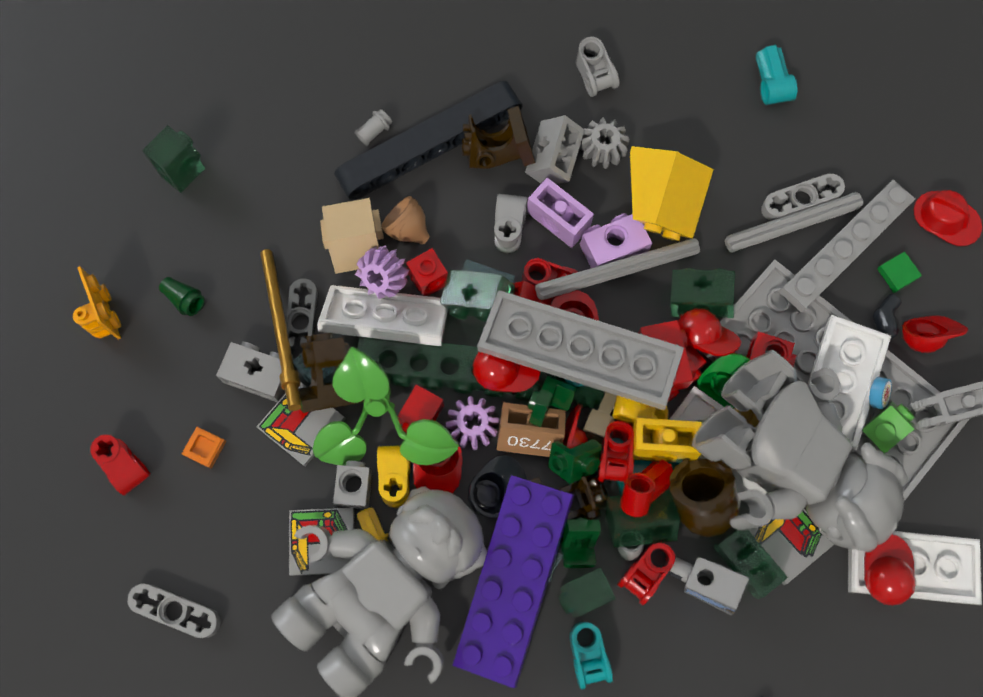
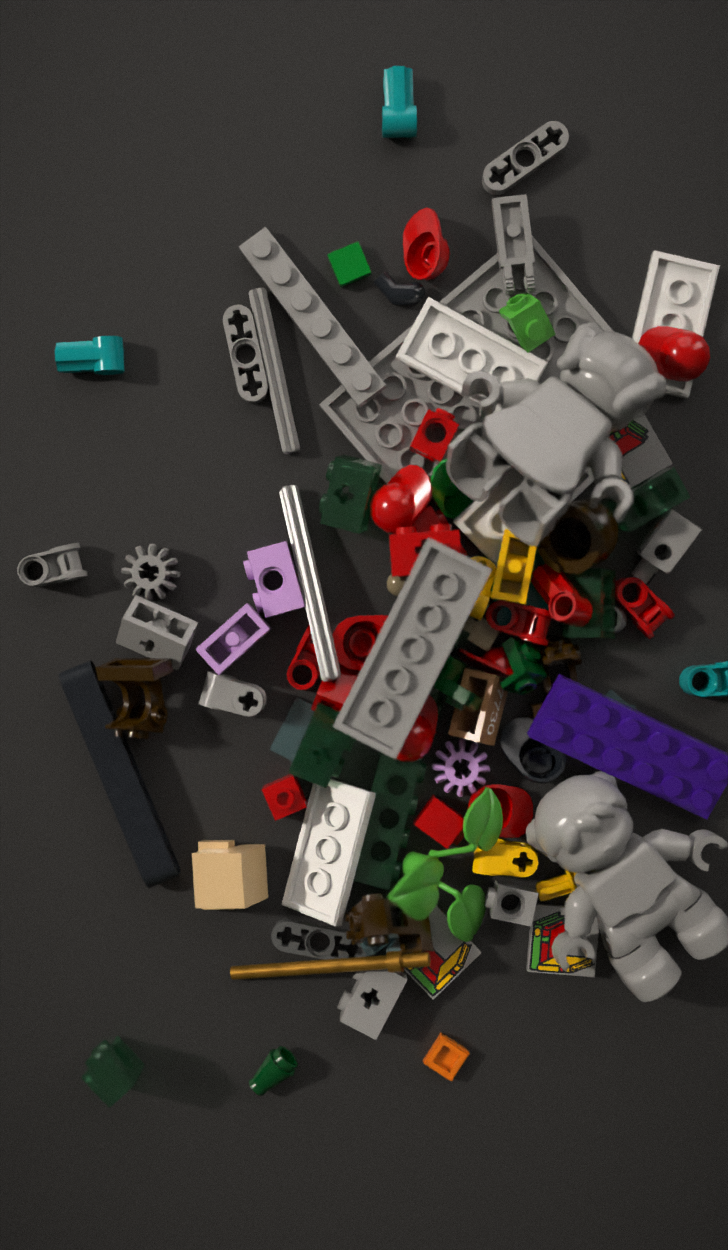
camera: 75 degrees left, 15 degrees up
(96, 315) = (289, 1161): light orange hinge -> none
(123, 467) = (457, 1144): red piece -> none
(156, 594) = (594, 1115): light grey beam -> none
(373, 127) = (94, 836): light grey pin -> none
(382, 272) = (282, 848): lavender gear -> none
(406, 222) = (220, 813): medium nougat helmet -> none
(579, 543) = (604, 672): dark green bracket -> none
(585, 593) = (659, 676): clear green brick -> none
(667, 191) = (228, 514): yellow slope -> none
(880, 393) = (491, 324): dark azure tile -> none
(948, 217) = (290, 192): red piece -> none

